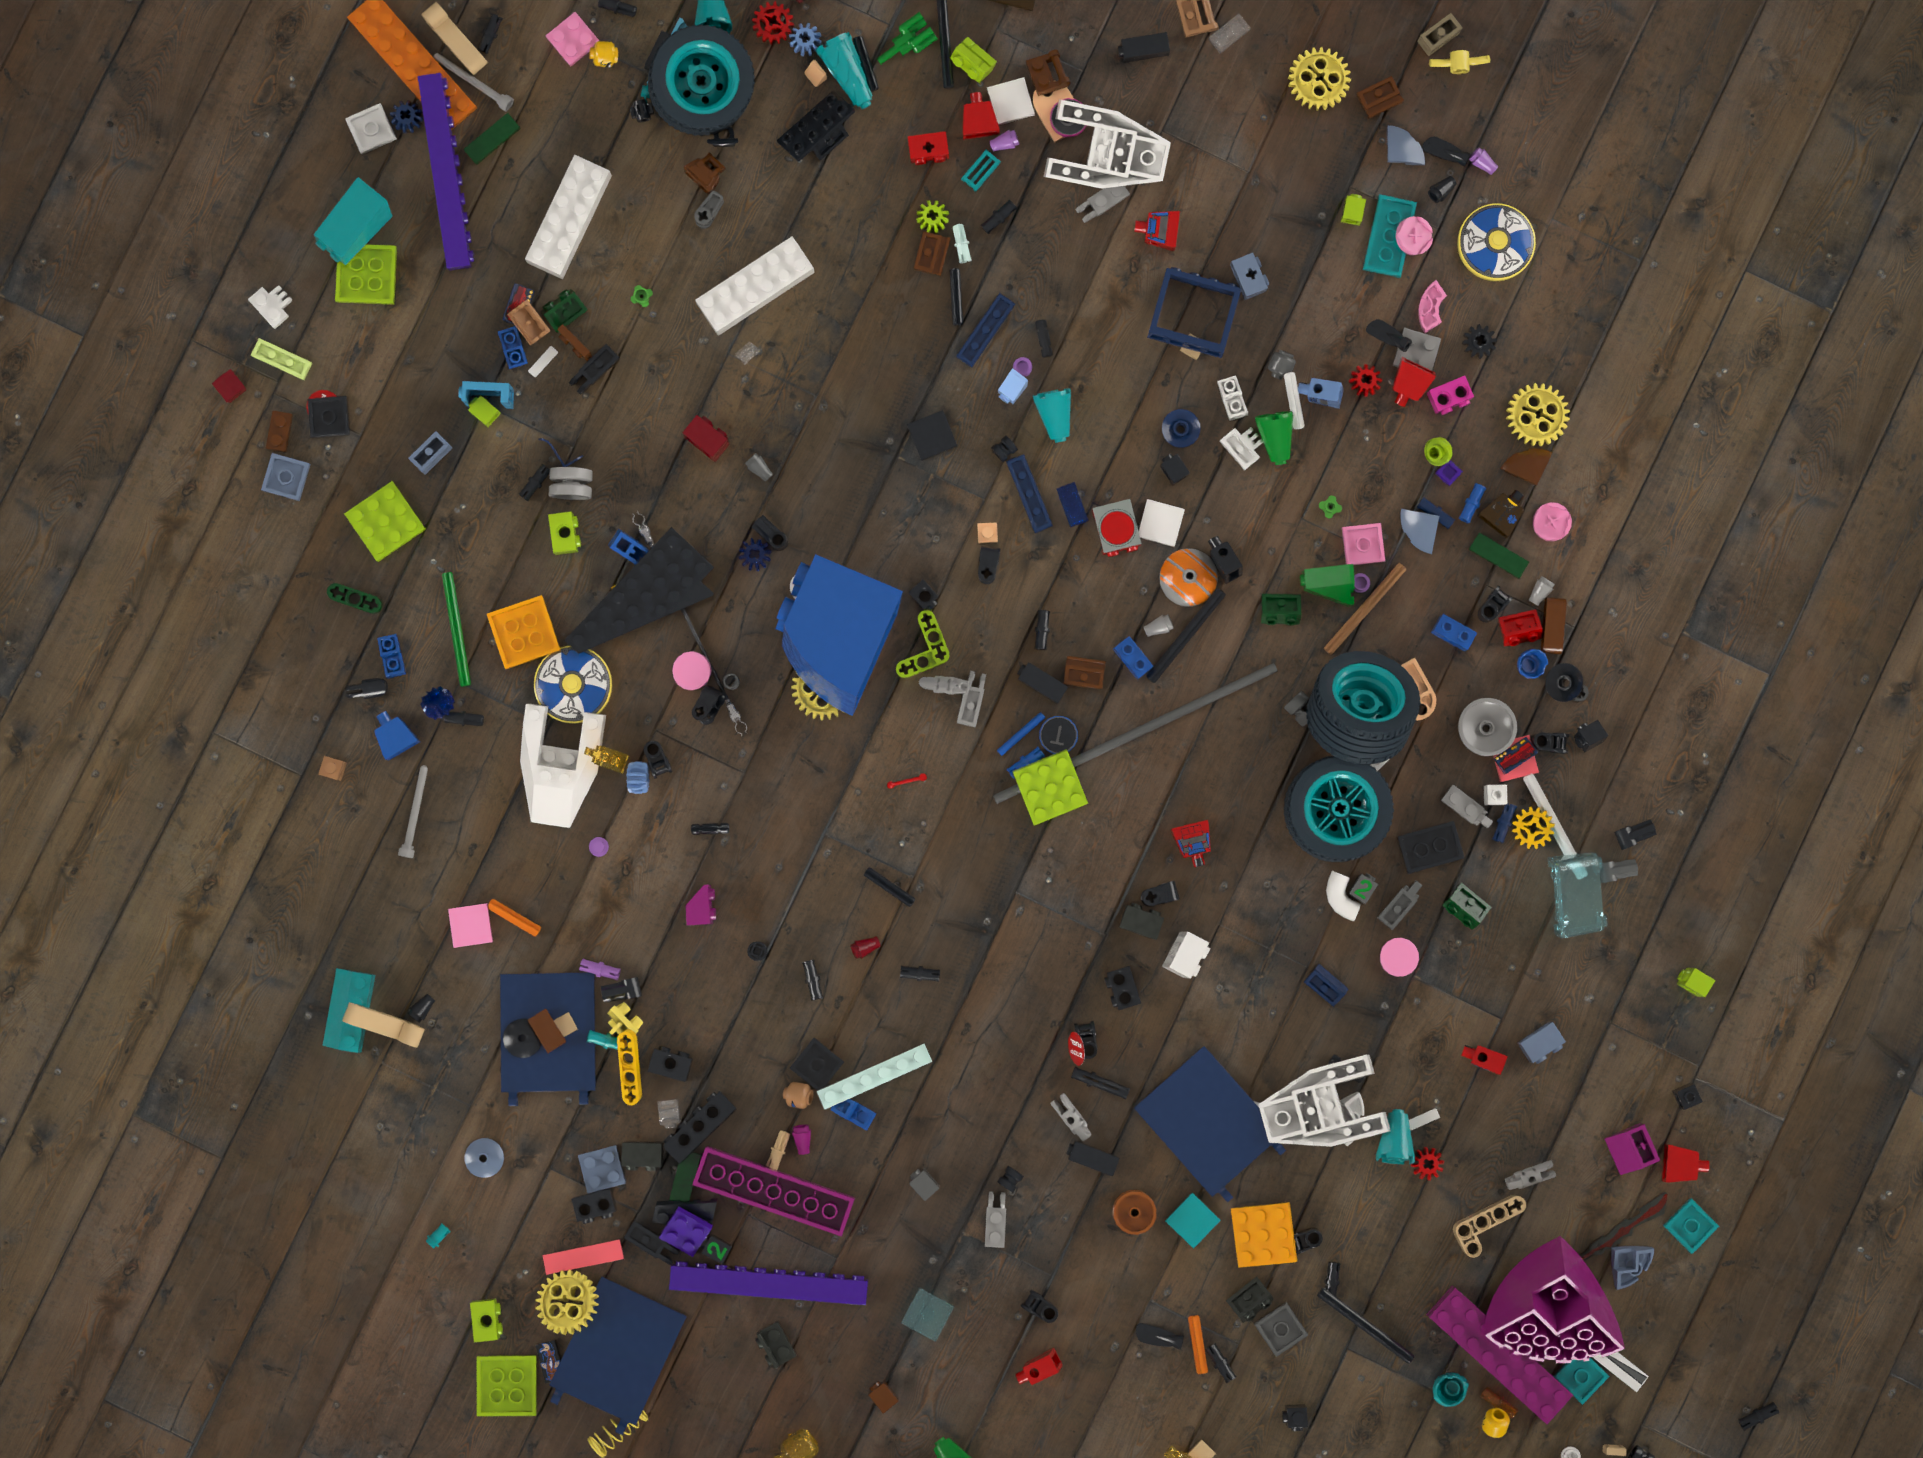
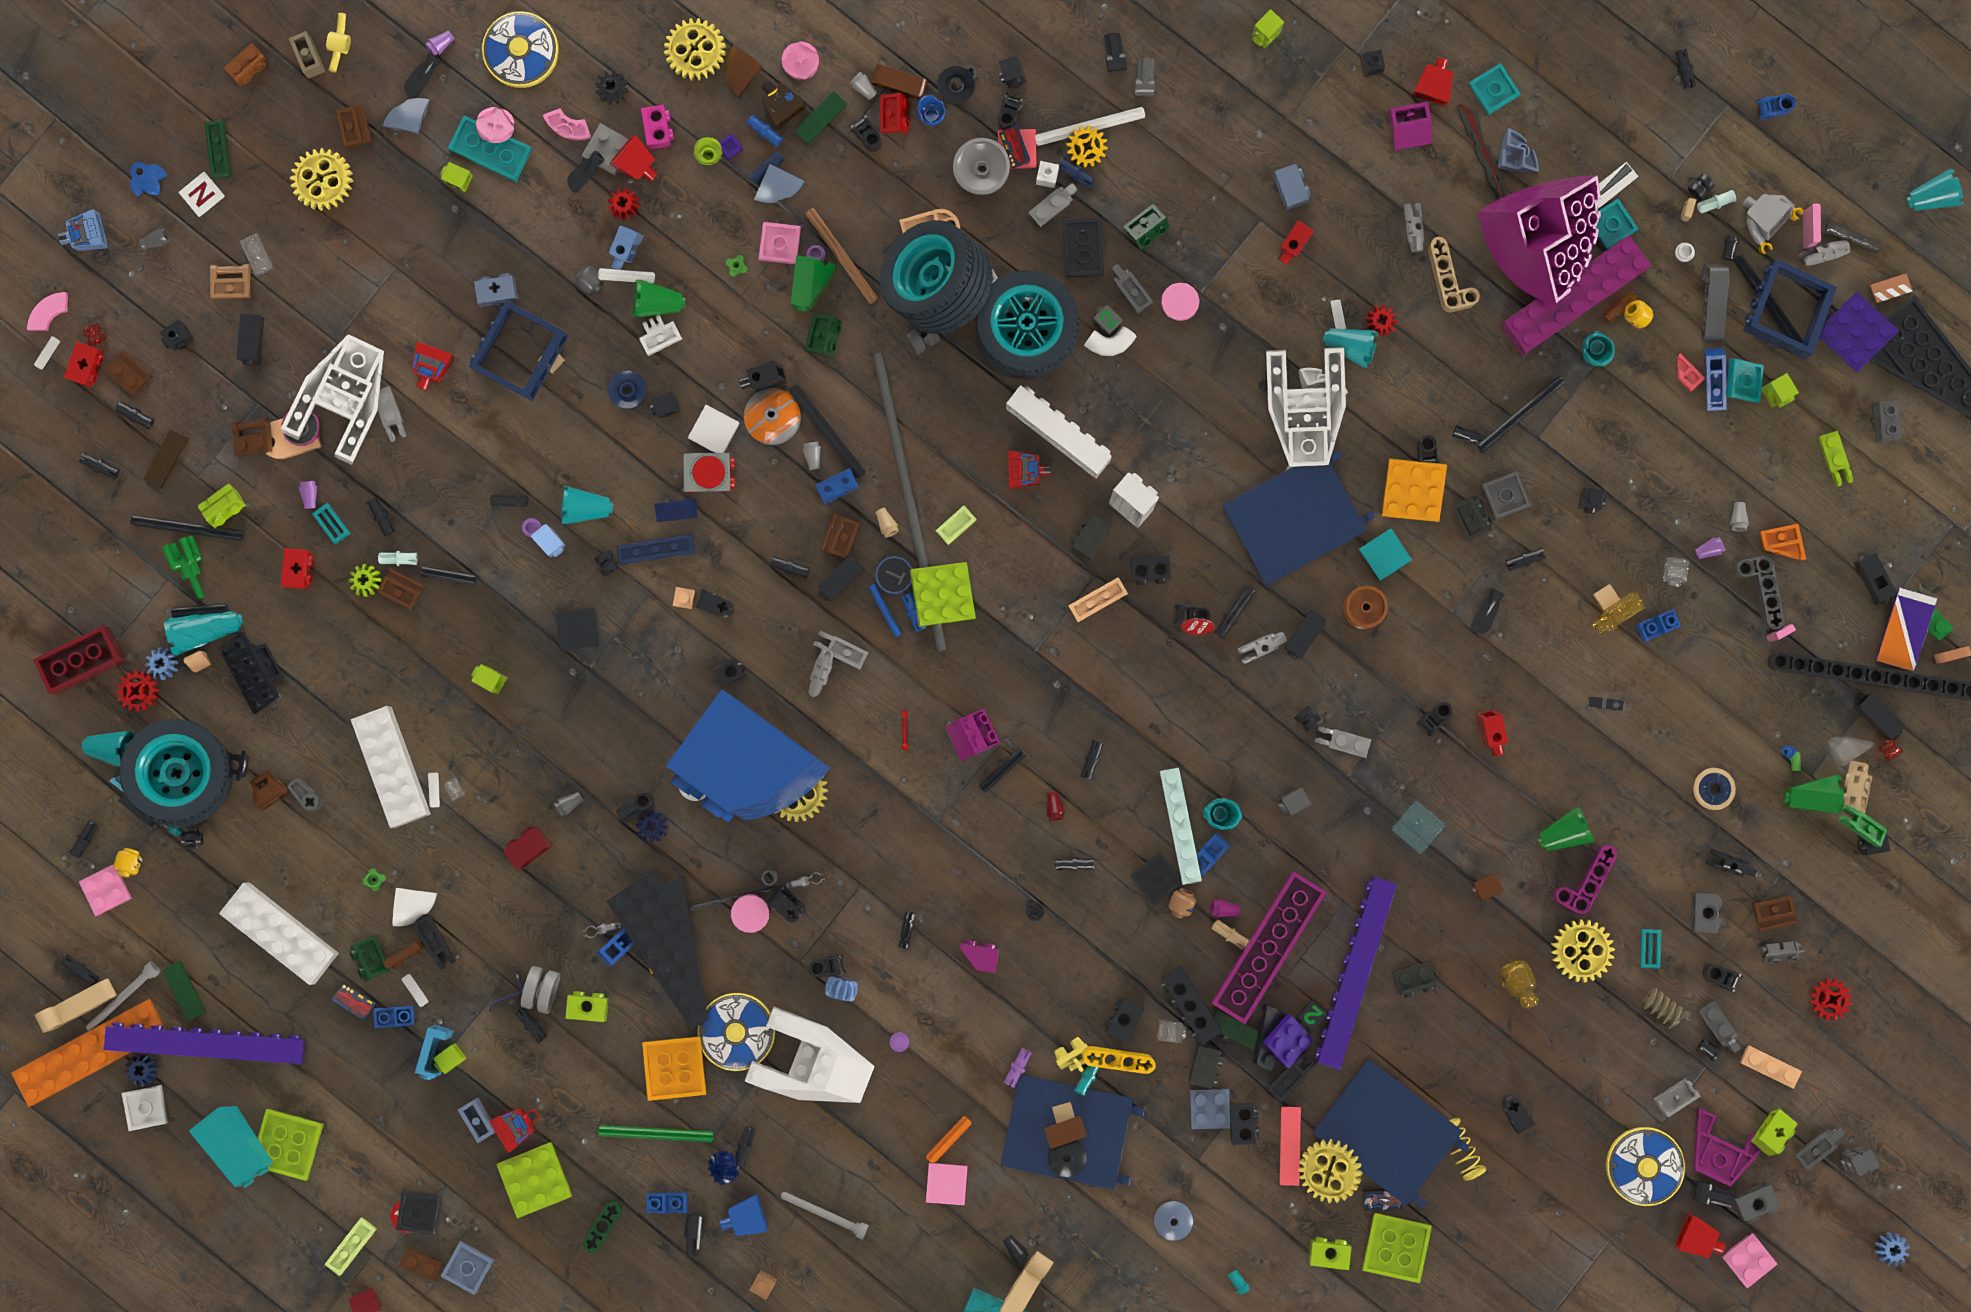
camera: 70 degrees left, 0 degrees up
(271, 305) = (295, 1244): white hinge -> none
(431, 490) = (514, 1127): none -> torso
(528, 322) = (373, 995): medium nougat hinge -> none
(607, 758) = (816, 1013): clear yellow hinge -> none
(624, 338) = (411, 905): none -> white brick
(625, 989) = (1042, 1055): black piece -> none
(742, 333) = (433, 780): none -> white sticker
(863, 360) = (488, 678): none -> lime brick
(895, 1115) = (1222, 814): none -> teal hair
(917, 849) = (972, 734): none -> magenta slope
(930, 654) = (788, 680): lime beam -> none
(979, 118) = (280, 513): red torso -> none
(985, 330) = (487, 554): dark blue tile -> none
(1011, 101) = (271, 479): white tile -> none
(1080, 943) = (1098, 599): none -> light nougat plate
(1108, 715) = (886, 523): none -> tan cone
(1122, 784) = (956, 525): none -> yellowish green tile
(1163, 894) = (1069, 511): black piece -> none
(1197, 1344) = (1503, 577): orange axle -> none
(1232, 398) = (610, 334): white slope -> none
(1238, 865) = (1058, 431): none -> white brick
(1326, 985) = (1191, 376): dark blue slope -> none
(1440, 190) = (457, 89): black cone -> none
(1454, 632) = (884, 177): blue brick -> none
(1577, 894) = (1159, 119): clear light blue windscreen -> none

